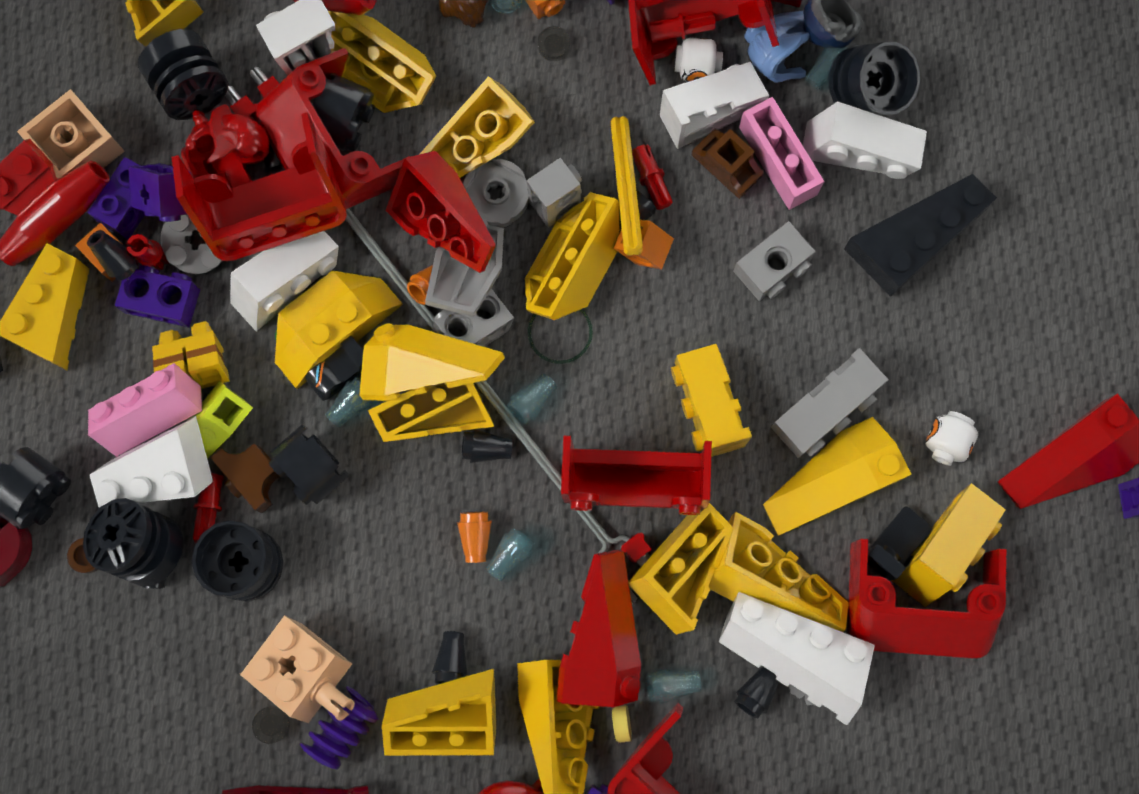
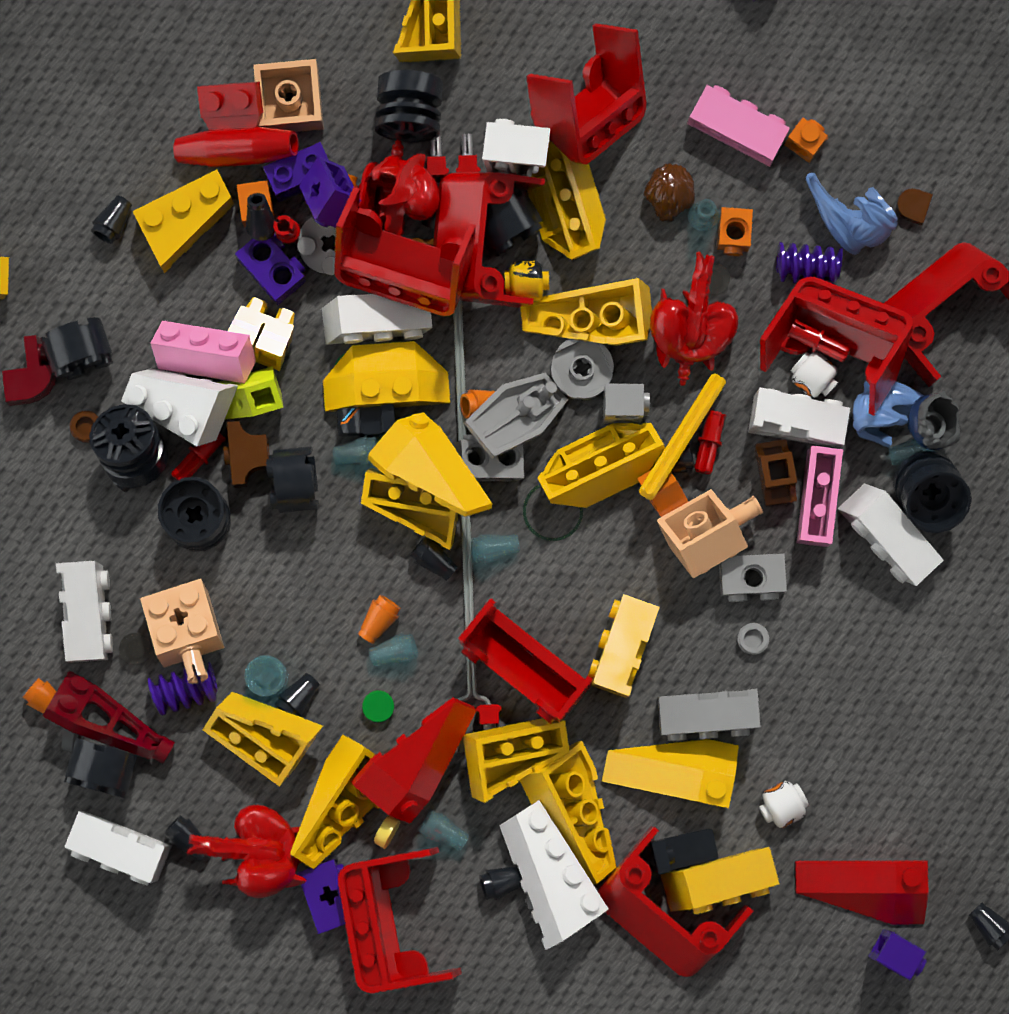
camera: 30 degrees right, 5 degrees up
(197, 724) = (85, 611): none -> white wedge
(393, 147) = (526, 280): none -> yellow head
(409, 661) = (266, 676): none -> clear light blue wheel
(435, 205) = (527, 349): red wedge -> none
(531, 614) = (378, 706): none -> green tile
(568, 88) = (693, 331): none -> red hair
(708, 249) = (706, 531): none -> light nougat brick
(814, 316) = (753, 639): none -> light grey tile
(913, 237) = (873, 634): black wedge -> none

